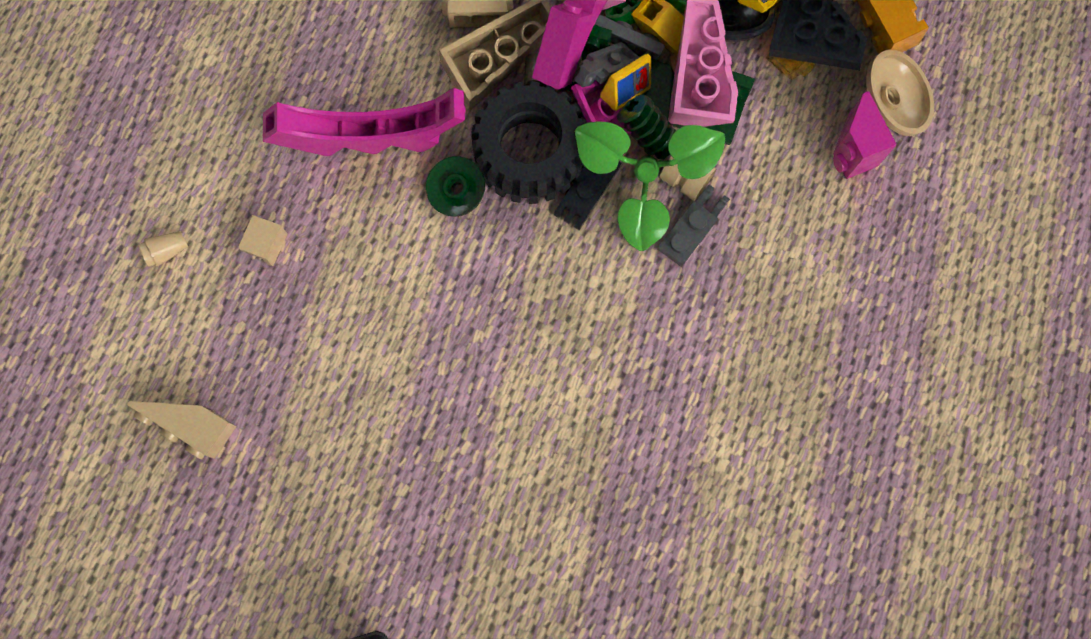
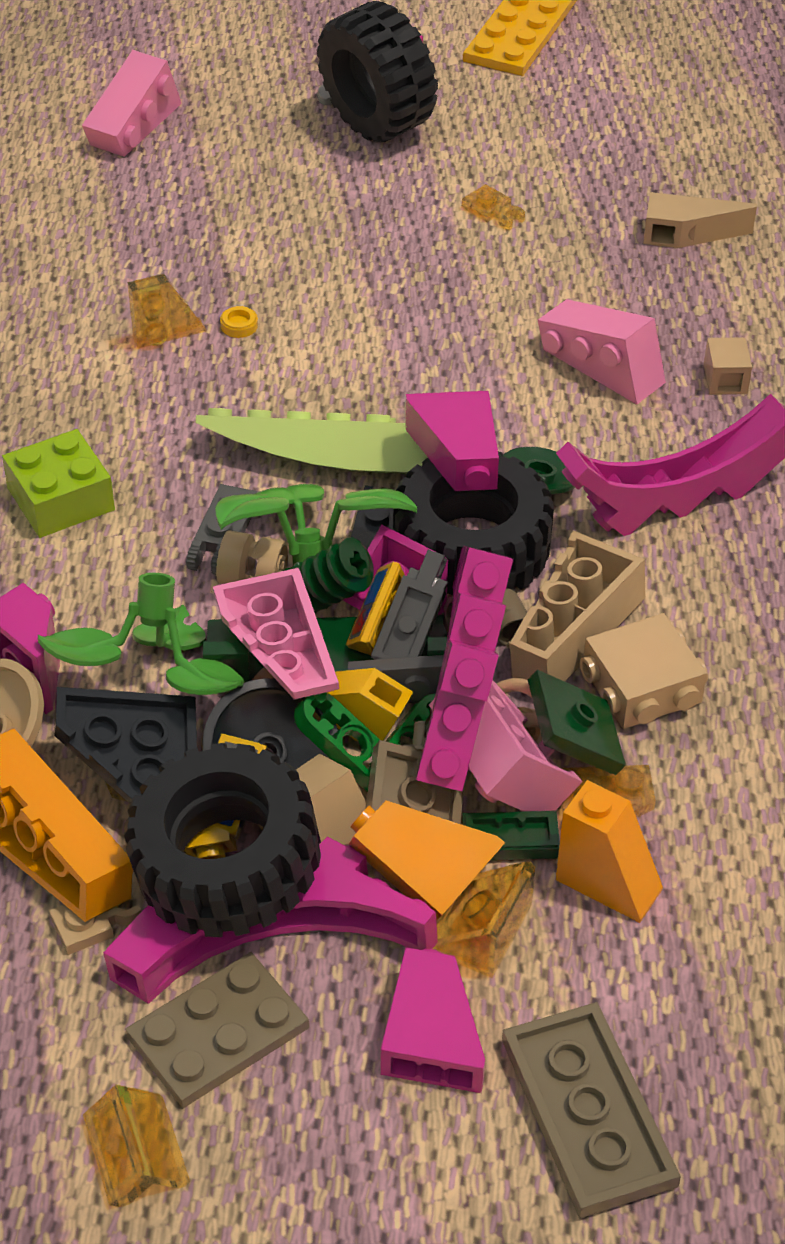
camera: 160 degrees right, 30 degrees down
(338, 524) = (491, 204): none -> clear yellow plate
(347, 293) = (606, 345): none -> bright pink wedge
(519, 173) = (456, 436): none -> dark pink slope
(588, 270) = (334, 443): none -> yellowish green wedge
(607, 448) = (239, 322): none -> yellow tile
(682, 452) = (160, 312): none -> clear yellow wing
(801, 299) = (58, 483): none -> lime brick
(833, 96) = (161, 628): none -> bright green plant

